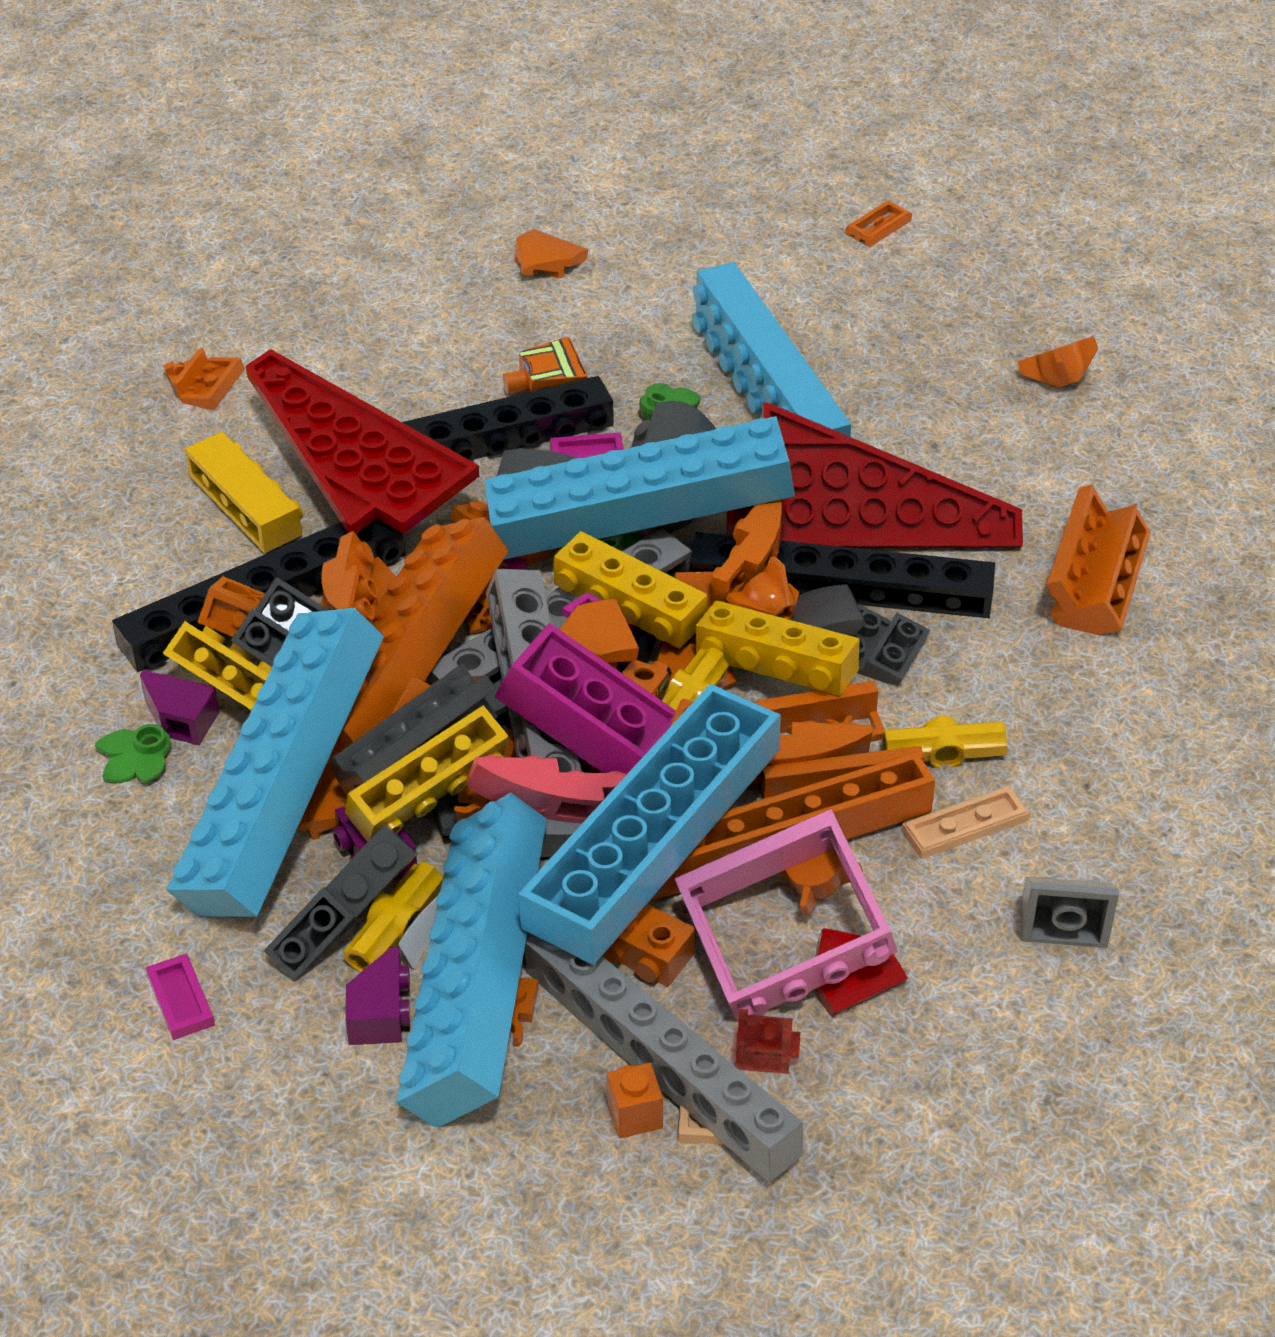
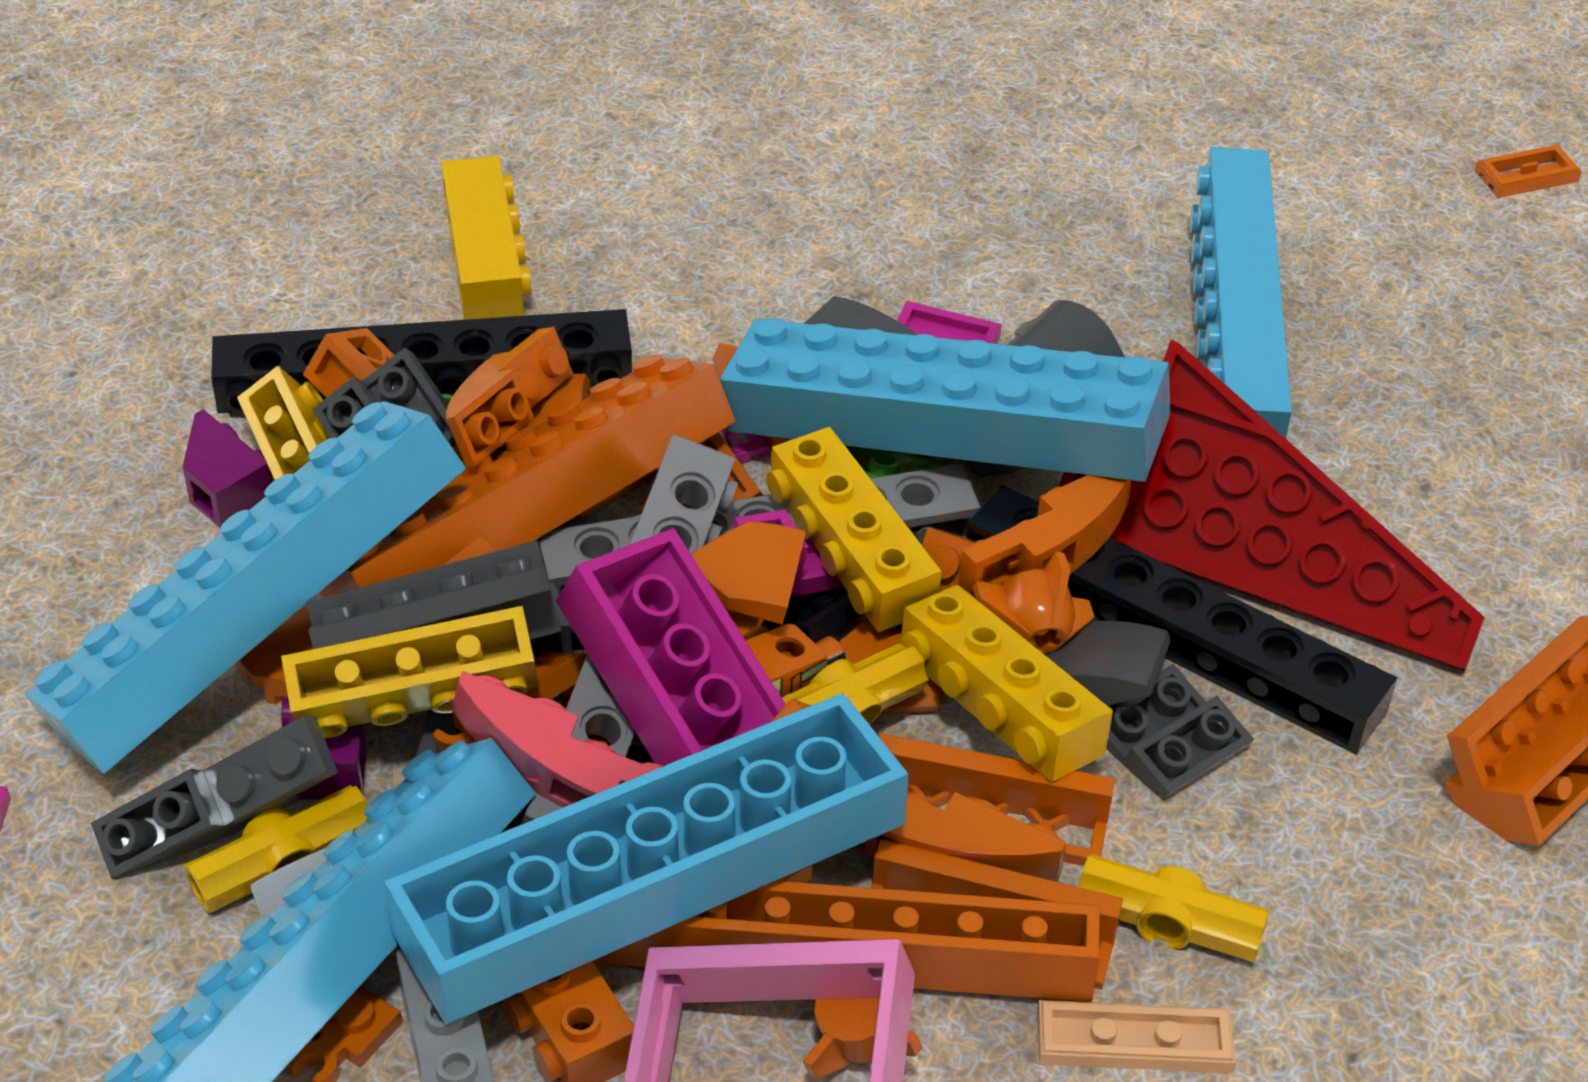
camera: 25 degrees right, 0 degrees up
(135, 753) = (137, 510): bright green plate -> none
(204, 380) = (542, 92): orange slope -> none
(356, 452) = (639, 236): red wing -> none
(376, 1003) = (175, 945): magenta slope -> none
(521, 419) = (811, 260): black brick -> none
(545, 367) = (956, 221): orange torso -> none
(546, 254) = (1057, 74): orange slope -> none
(663, 392) = (1095, 294): bright green plate -> none

